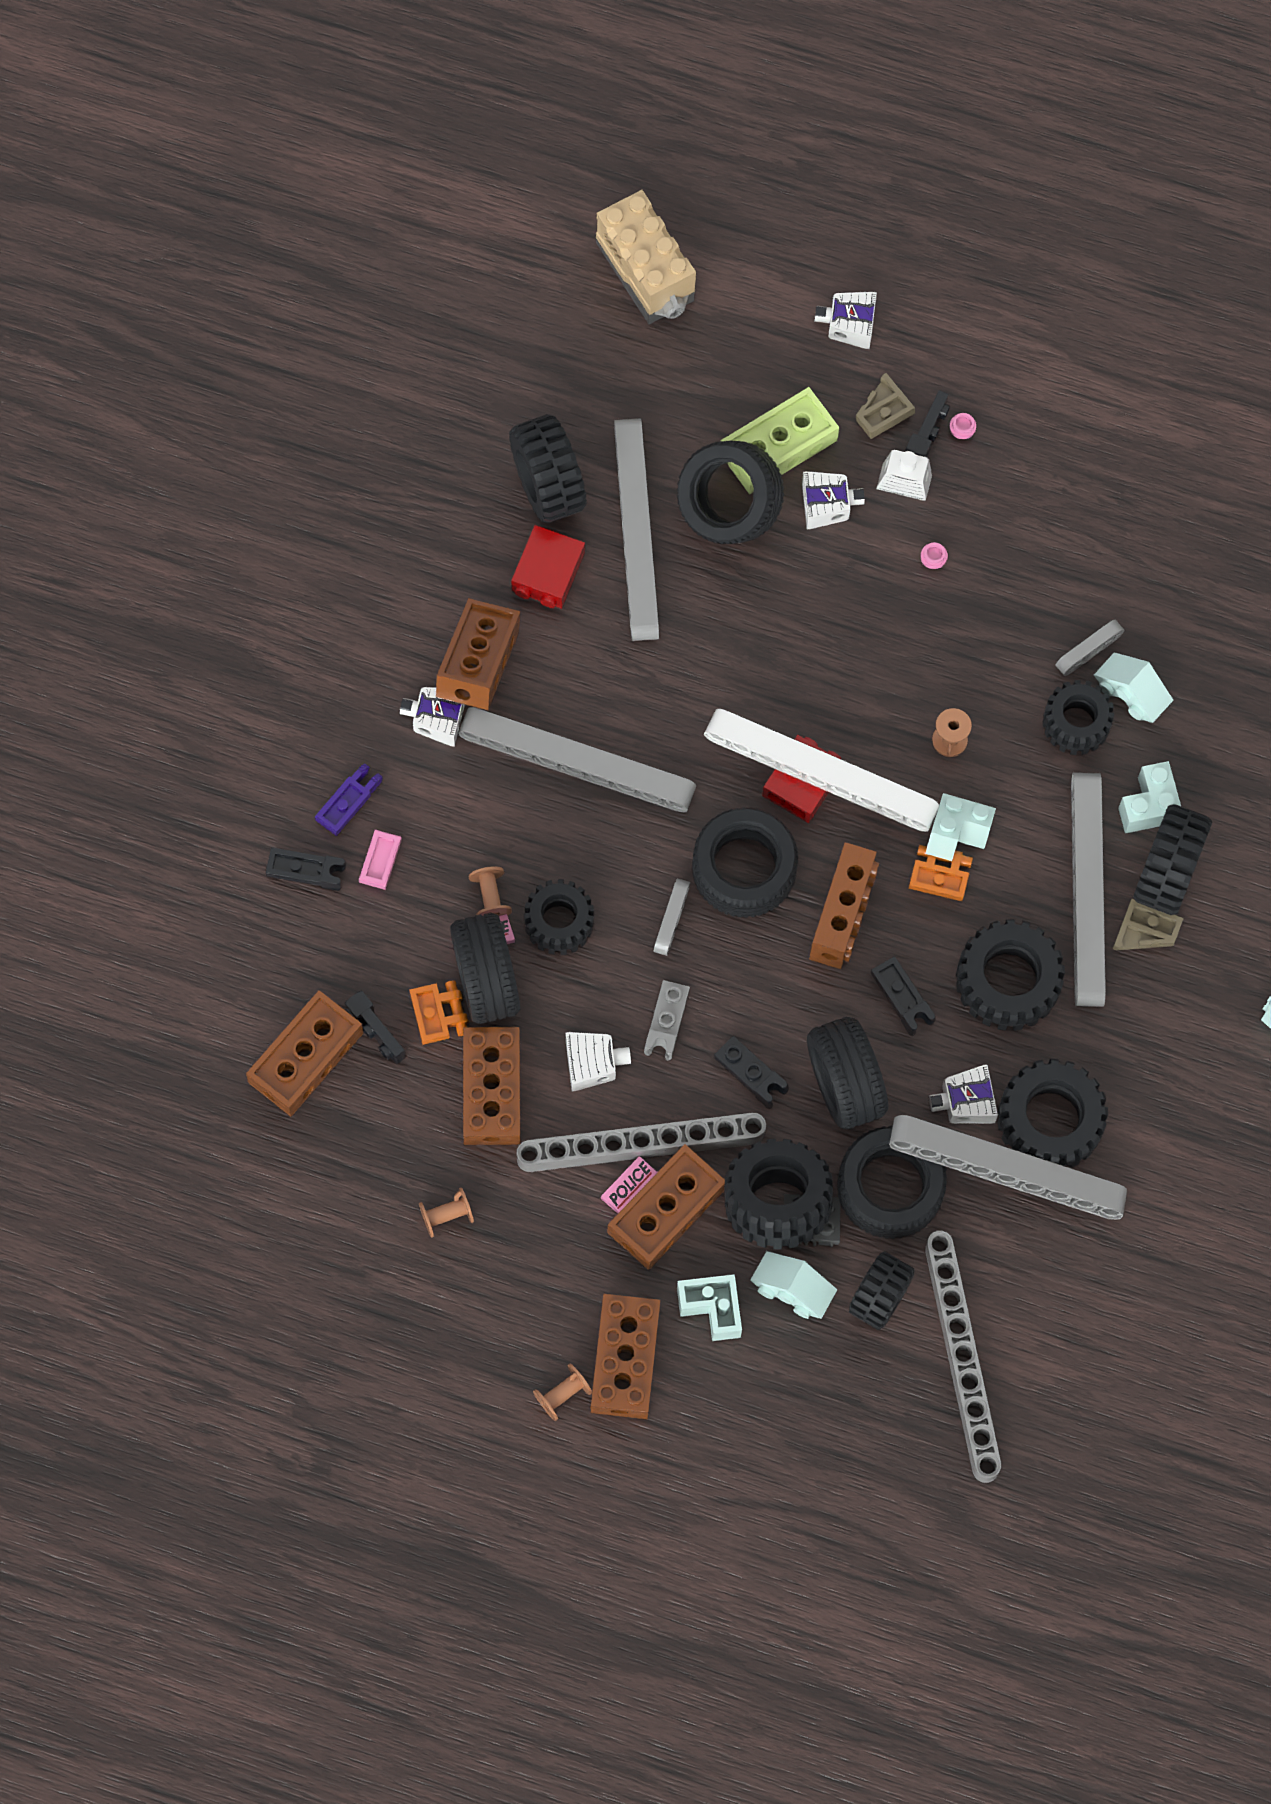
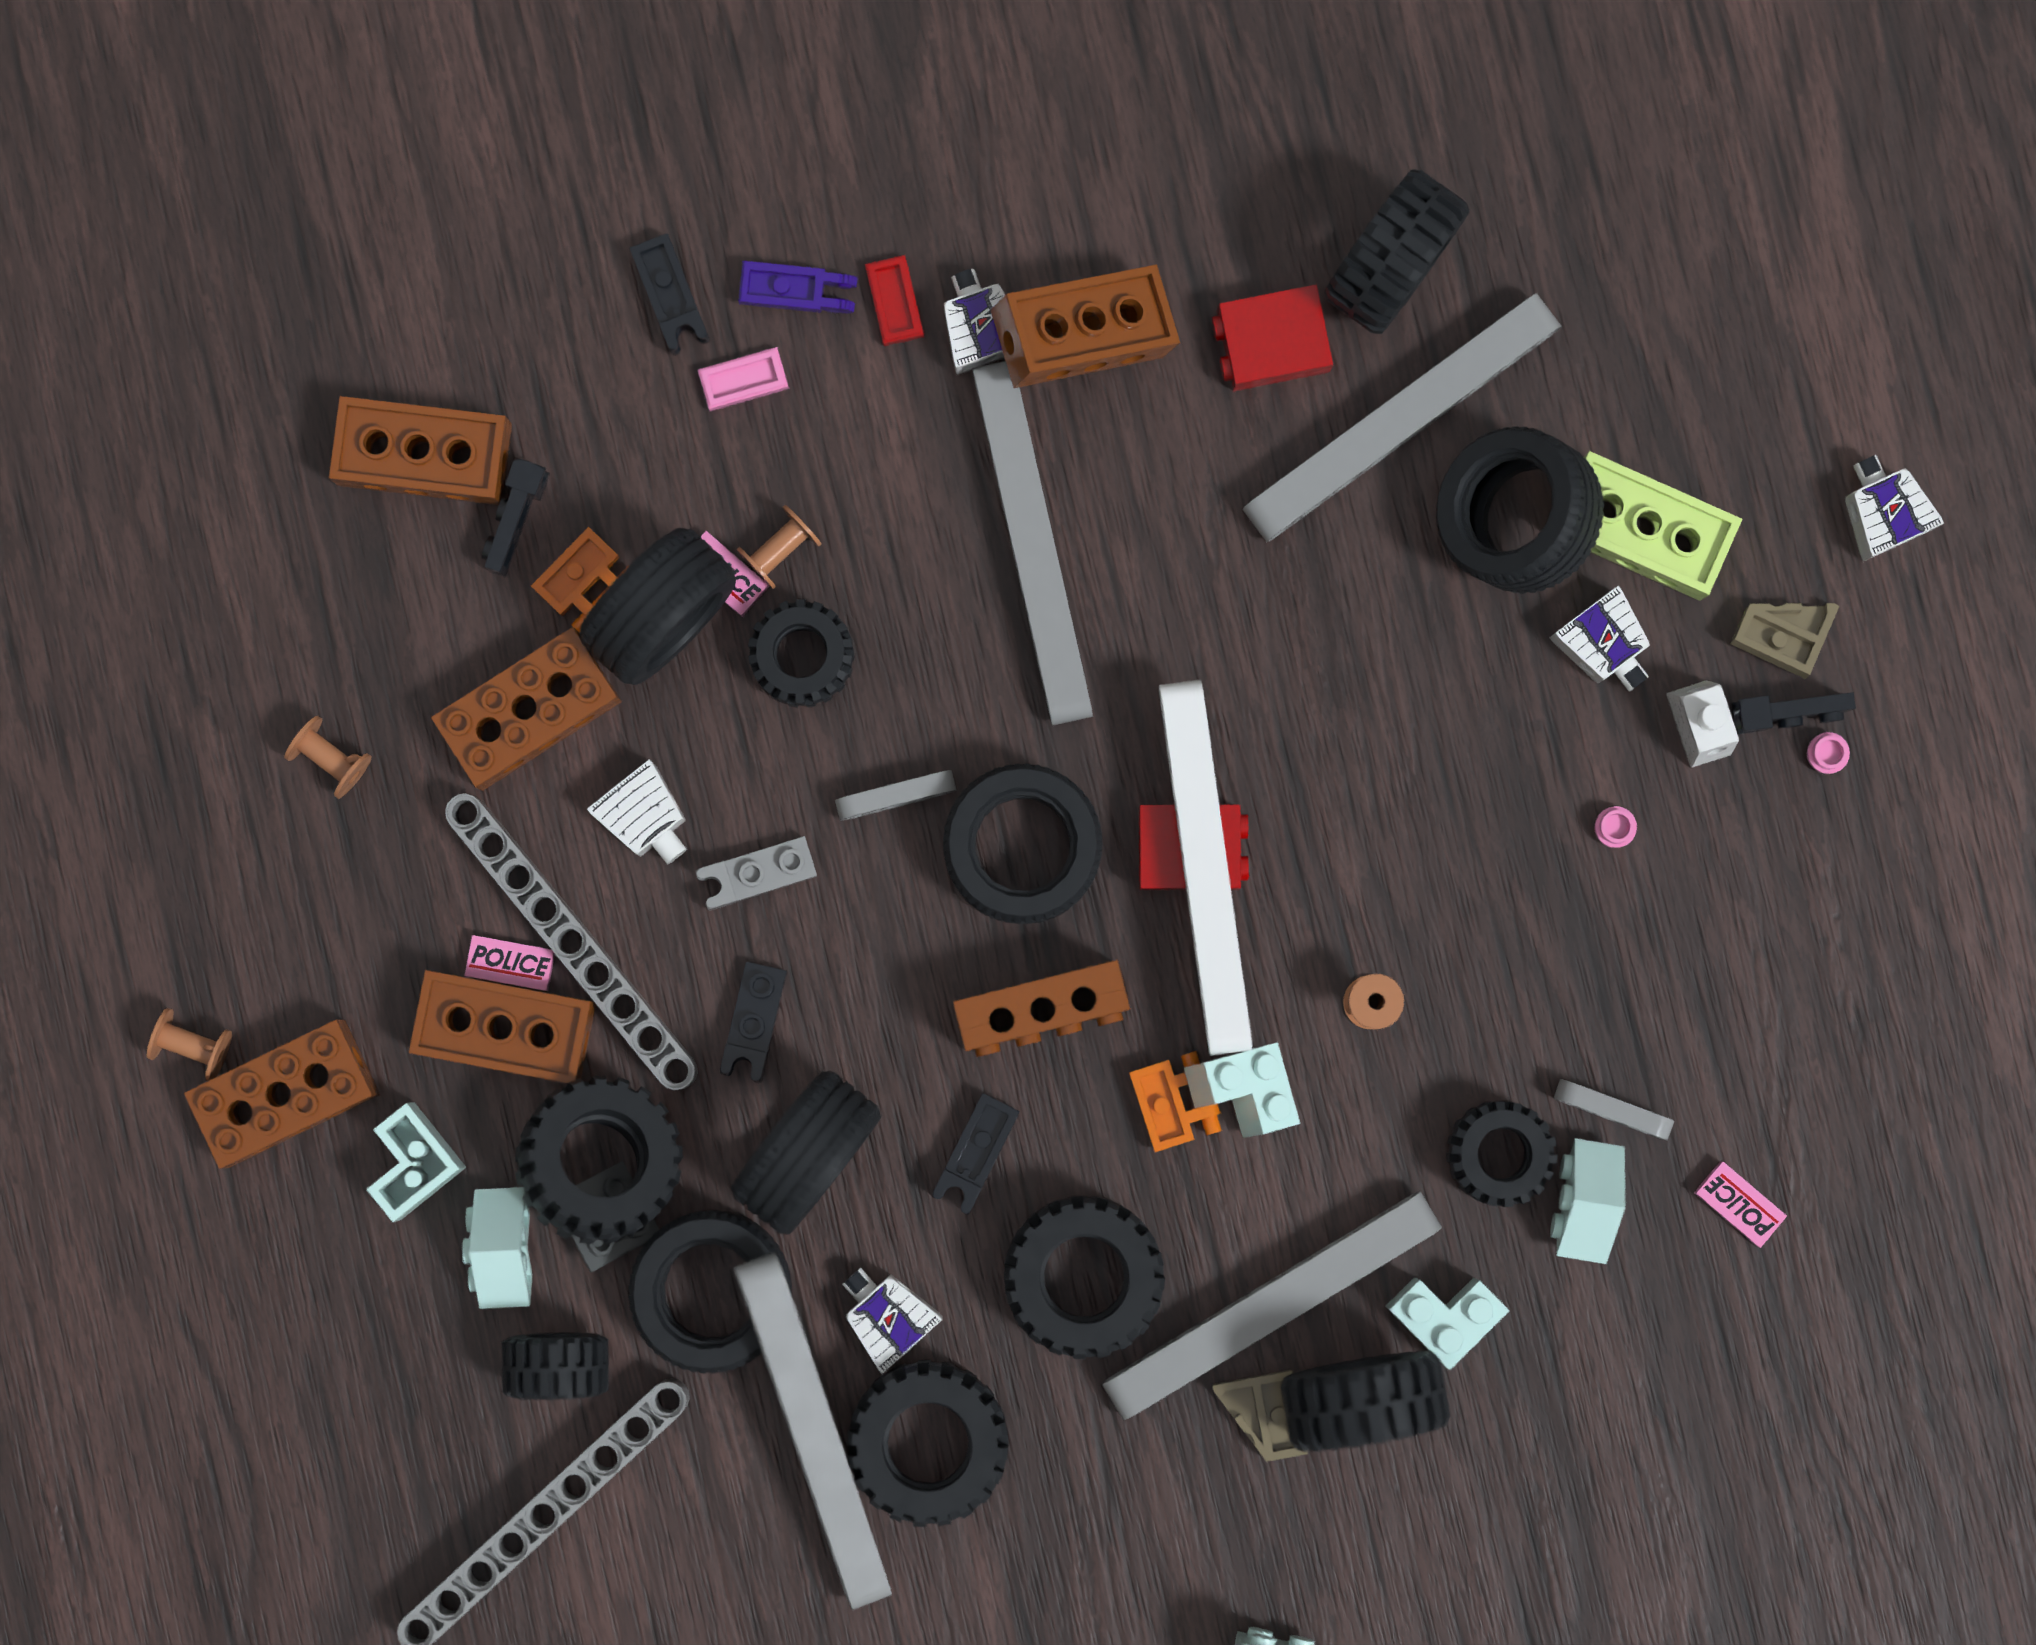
camera: 60 degrees right, 15 degrees up
(390, 753) = (894, 300): none -> red tile
(645, 258) = (1793, 188): tan piece -> none
(1182, 616) = (1740, 1204): none -> bright pink tile

